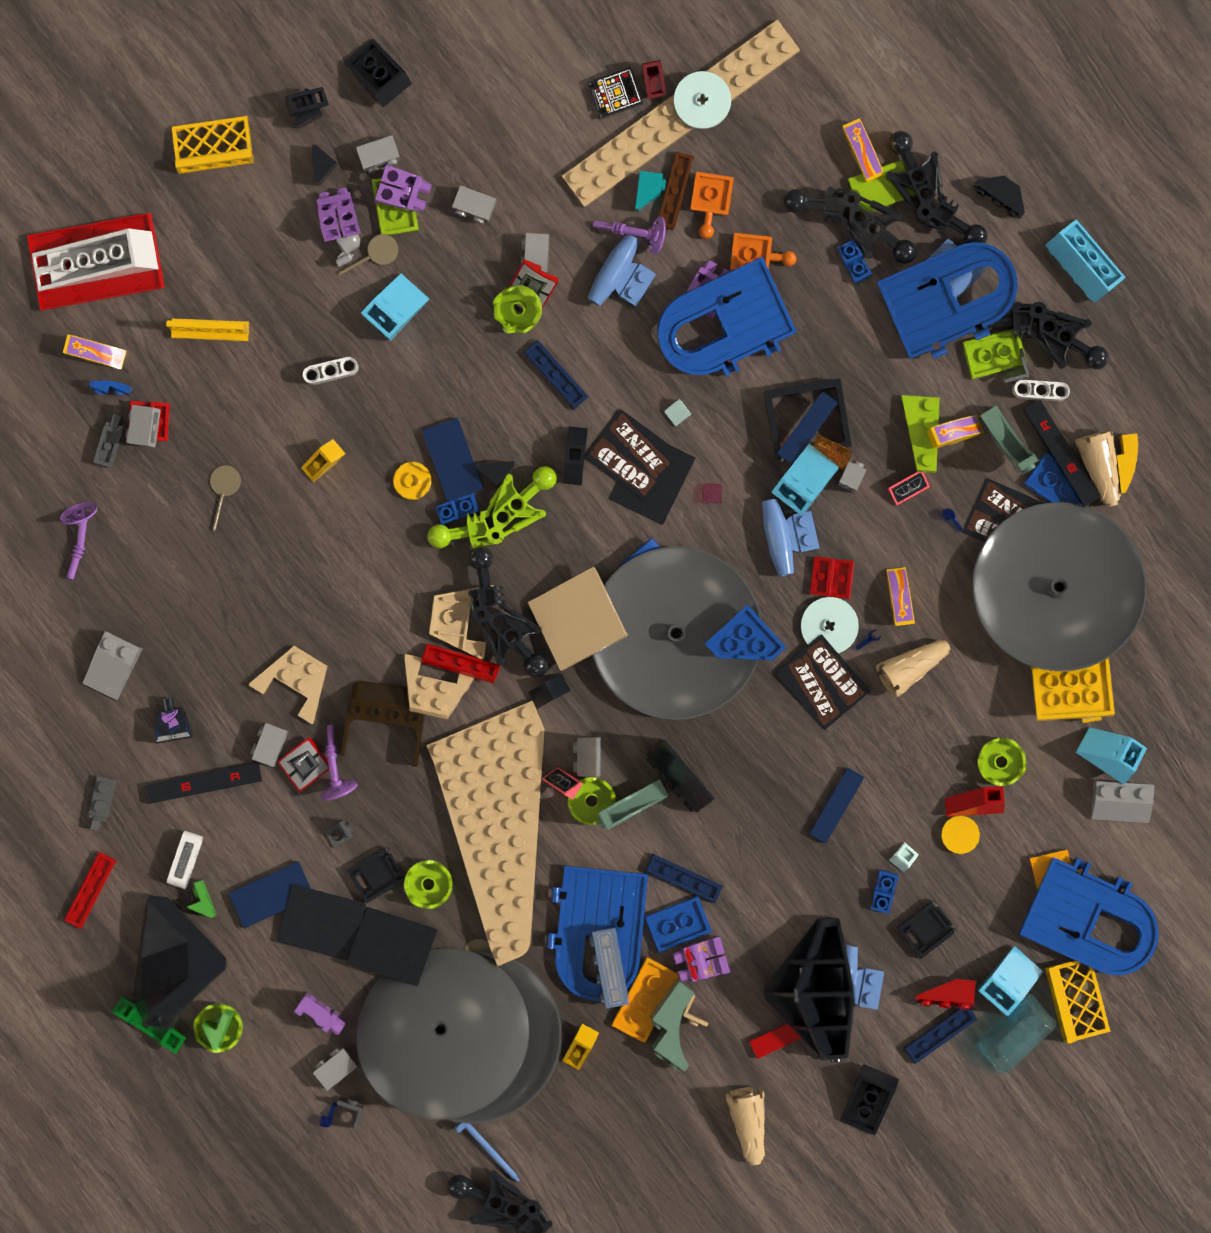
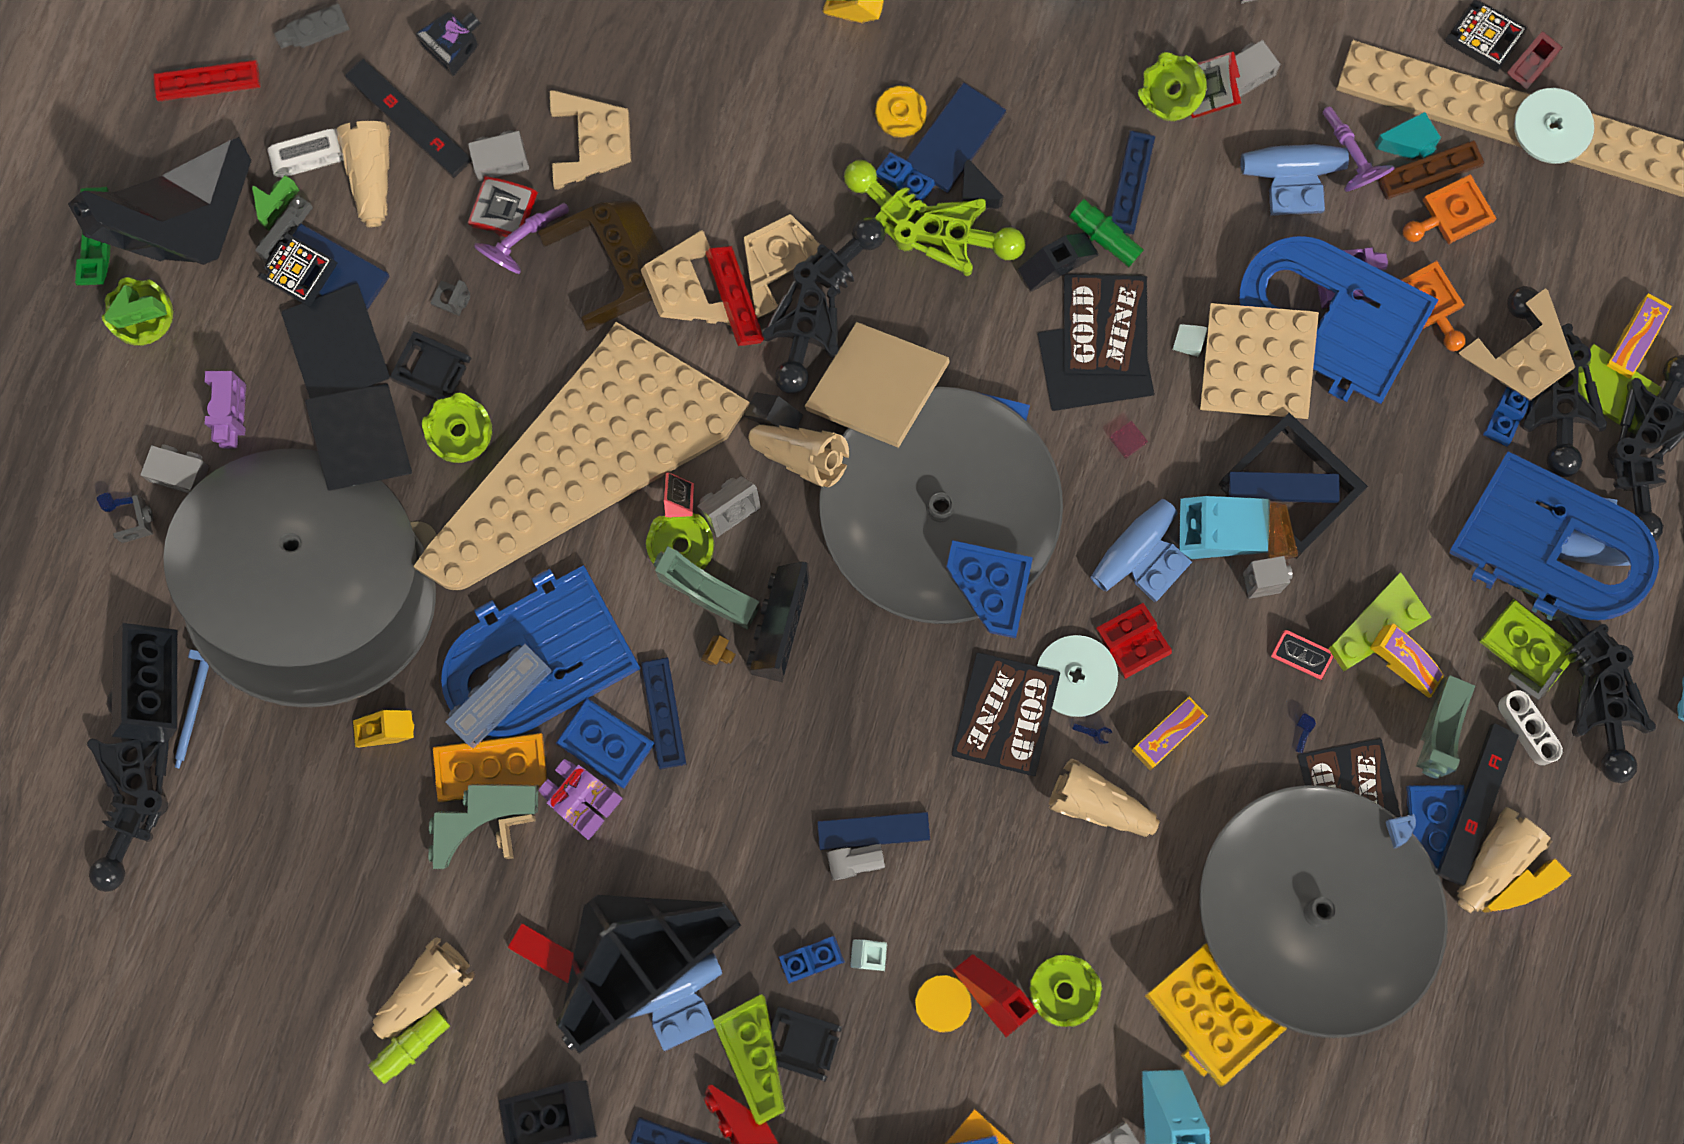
camera: 55 degrees right, 10 degrees down
(221, 829) = (366, 163): none -> tan cone
(226, 905) = (288, 223): none -> dark grey hinge
(255, 916) = (291, 266): none -> black container
(461, 1166) = (144, 682): none -> black brick
(578, 415) = (1106, 232): none -> green piece
(590, 692) = (803, 451): none -> tan cone
(670, 823) = (716, 651): none -> pearl gold tile
(721, 384) = (1259, 361): none -> tan plate
(775, 1151) = (408, 1046): none -> lime piece
(836, 225) = (1533, 361): none -> tan wing
(845, 831) = (848, 862): none -> light grey piece
(913, 961) = (751, 1051): none -> lime wing
(1045, 508) = (1401, 829): none -> medium blue tile

